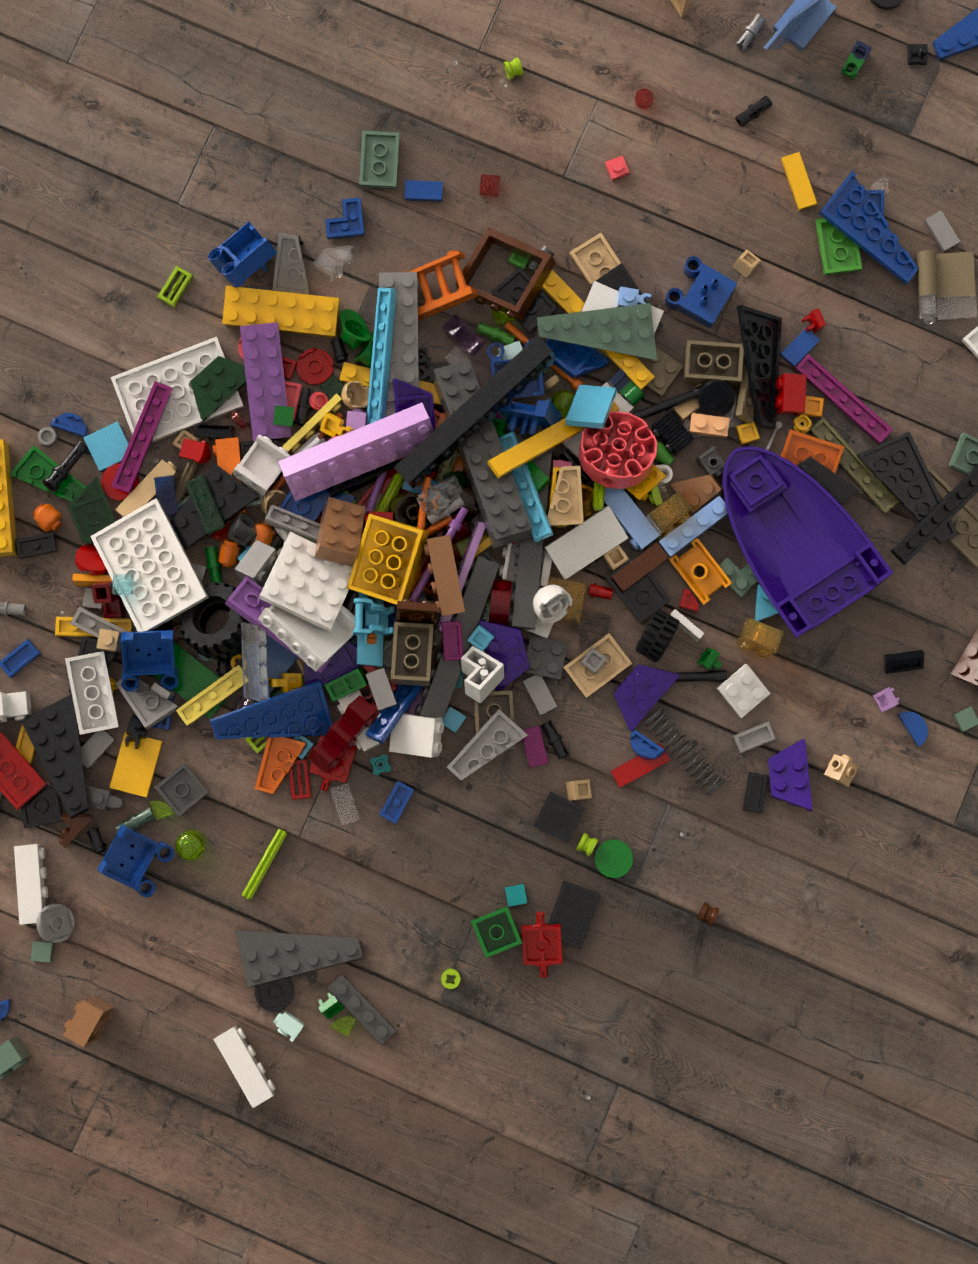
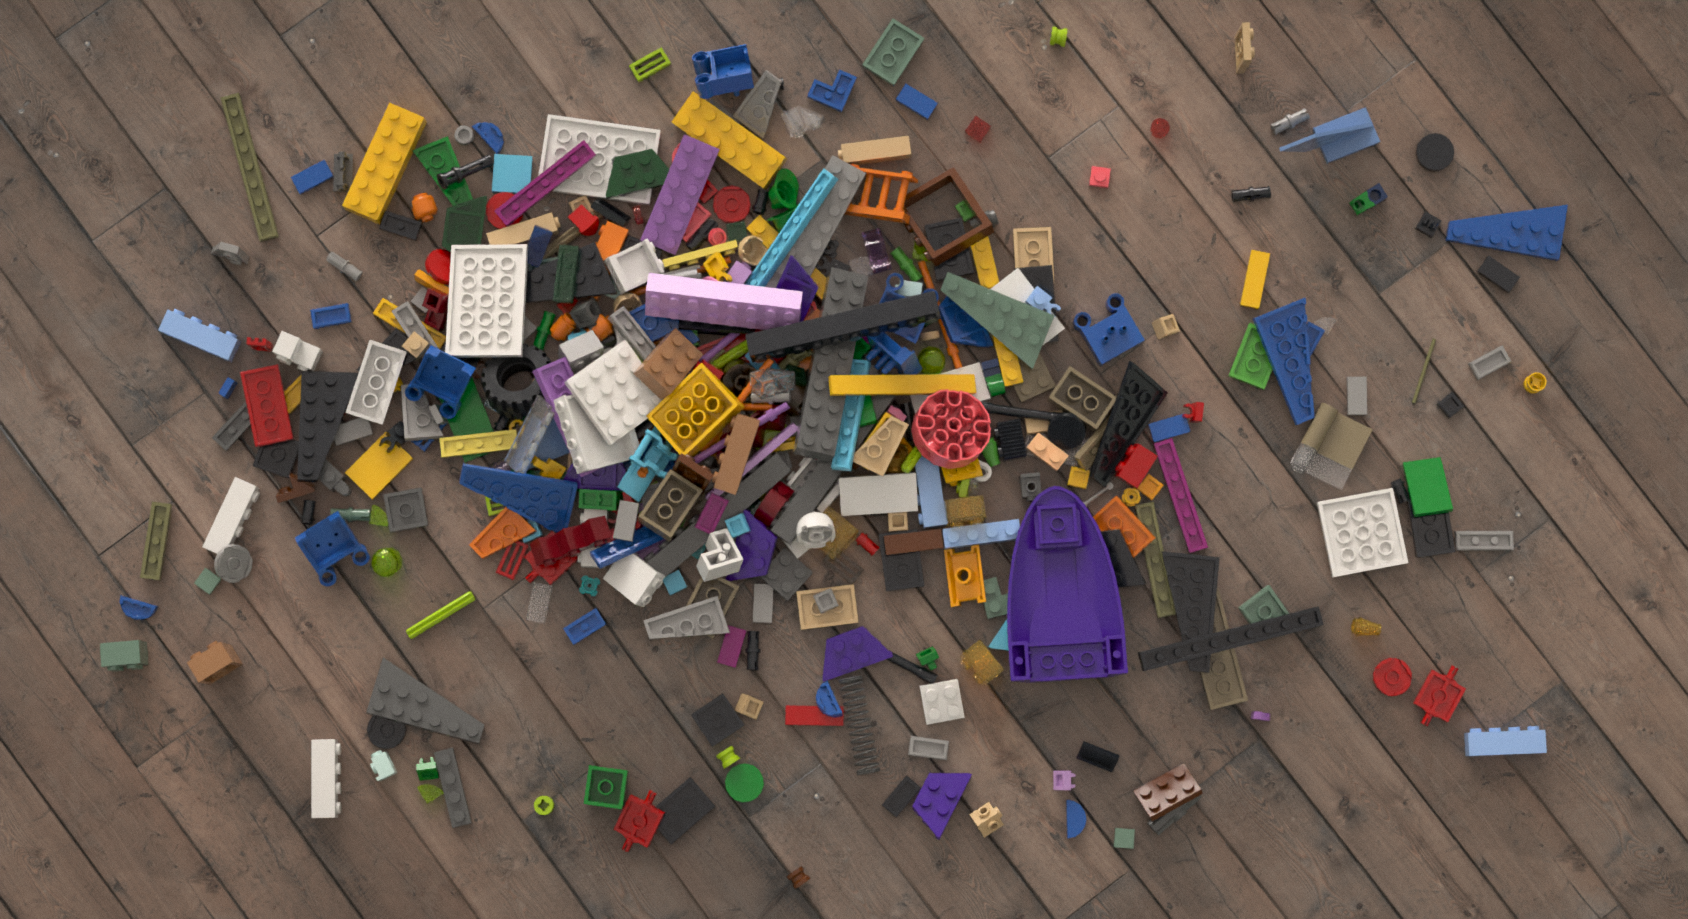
camera: 25 degrees right, 0 degrees up
(123, 584) = (455, 304): clear light blue tile -> none
(283, 415) = (678, 233): green tile -> none
(414, 250) = (875, 150): none -> tan brick
(515, 895) = (641, 765): teal tile -> none
(591, 406) = (950, 377): medium azure tile -> none
(657, 635) = (893, 610): black tyre -> none
(687, 626) = (924, 615): white tile -> none
(689, 601) = (940, 596): red tile -> none
(697, 490) = (1002, 503): medium nougat wing -> none

